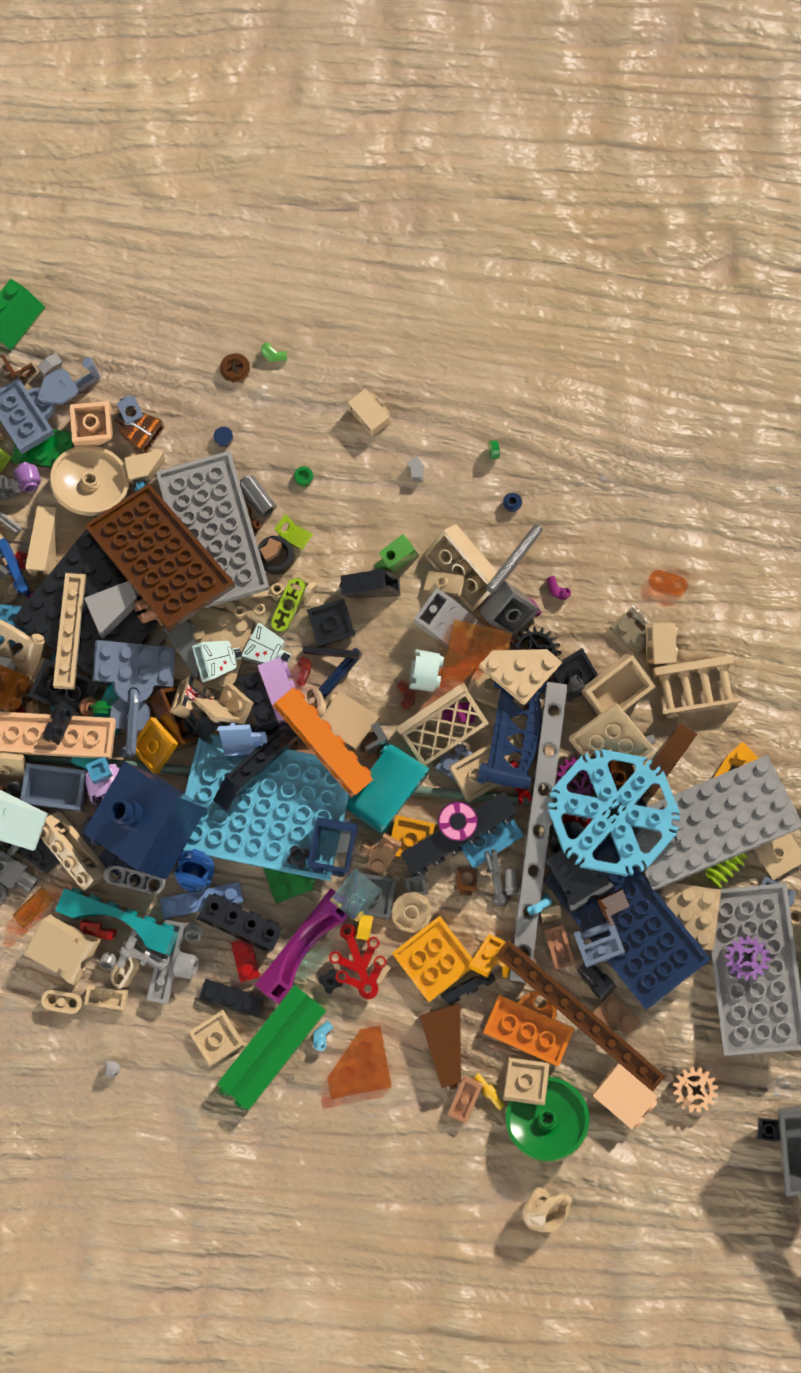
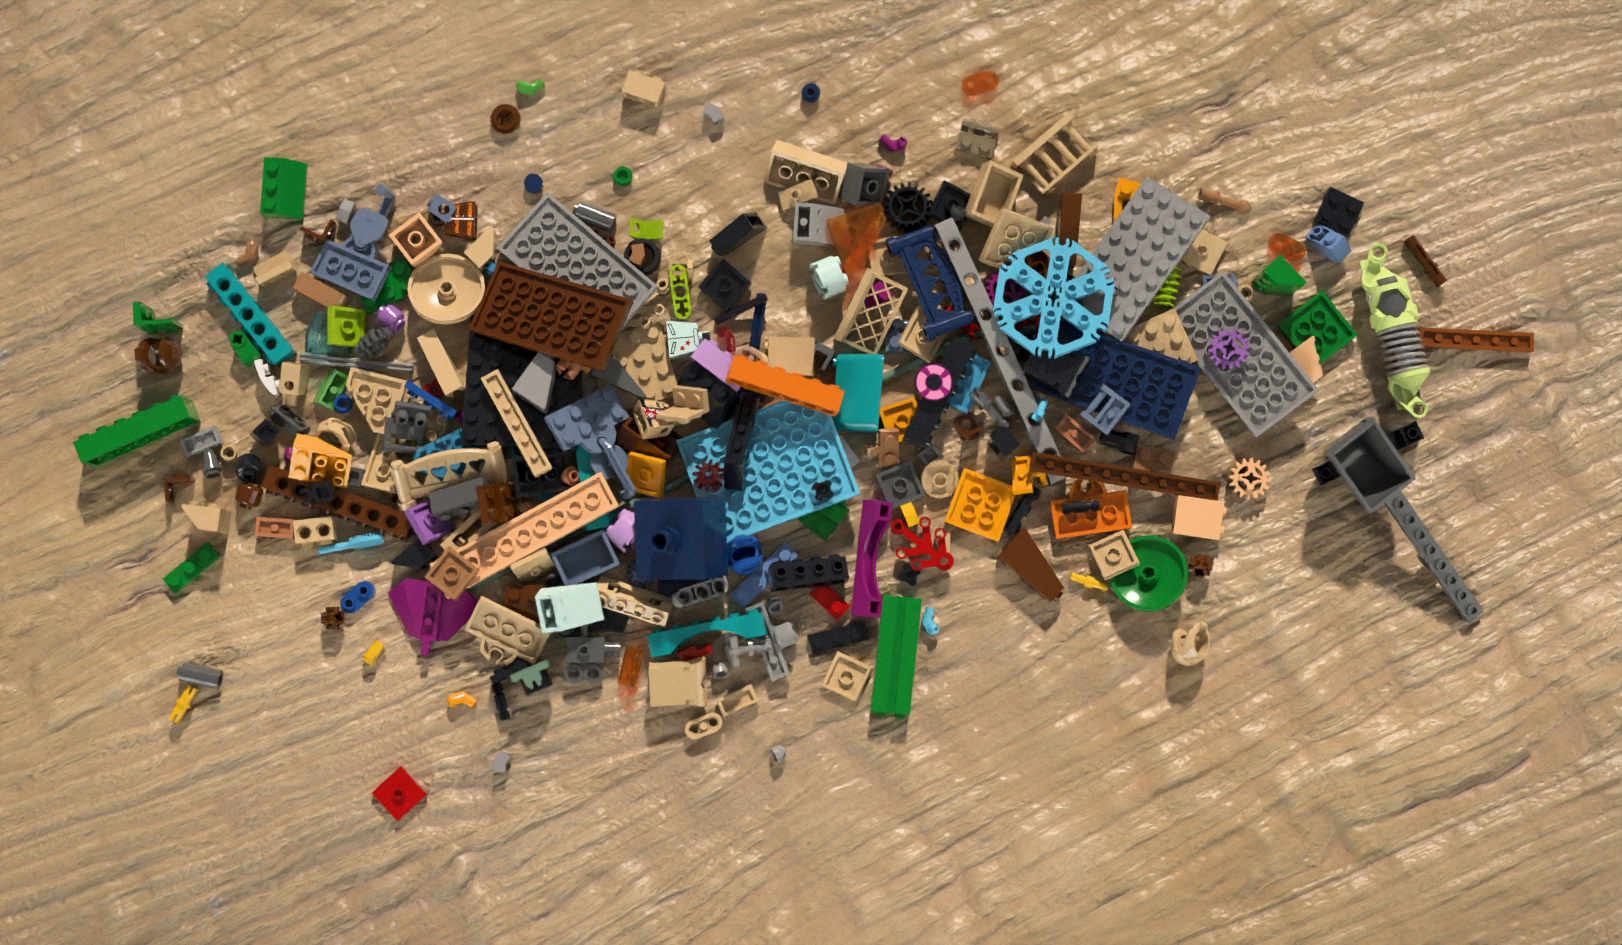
camera: 35 degrees left, 5 degrees up
(60, 720) = (556, 496): black hinge -> none
(99, 770) = (616, 521): dark azure plate -> none
(100, 707) = (582, 470): green plate -> none
(123, 976) = (744, 669): tan plate -> none
(199, 779) = (701, 478): none -> clear red gear
(200, 725) = (674, 434): black plate -> none
(215, 658) = (651, 372): light aqua torso -> none
(240, 739) = (715, 425): light blue piece -> none
(335, 826) = (840, 446): dark blue window -> none
(356, 895) = (888, 492): clear light blue slope -> none
(362, 1066) = (976, 625): clear orange plate -> none
(403, 552) = (744, 187): bright green torso -> none
(409, 694) = (826, 304): clear red arm -> none
(465, 1099) = (1074, 599): nougat plate -> none
(488, 914) = (1003, 442): none -> black brick
(494, 449) = (768, 57): green tile -> none
(514, 558) = (843, 139): axle -> none
(520, 670) = (907, 229): tan plate -> none
(522, 1017) = (1080, 507): none -> black axle
(550, 914) = (1051, 411): tan plate -> none
(599, 1142) = (1200, 566): none -> reddish brown gear
(612, 904) = (1097, 372): bracket -> none
(661, 642) = (1005, 136): tan brick -> none

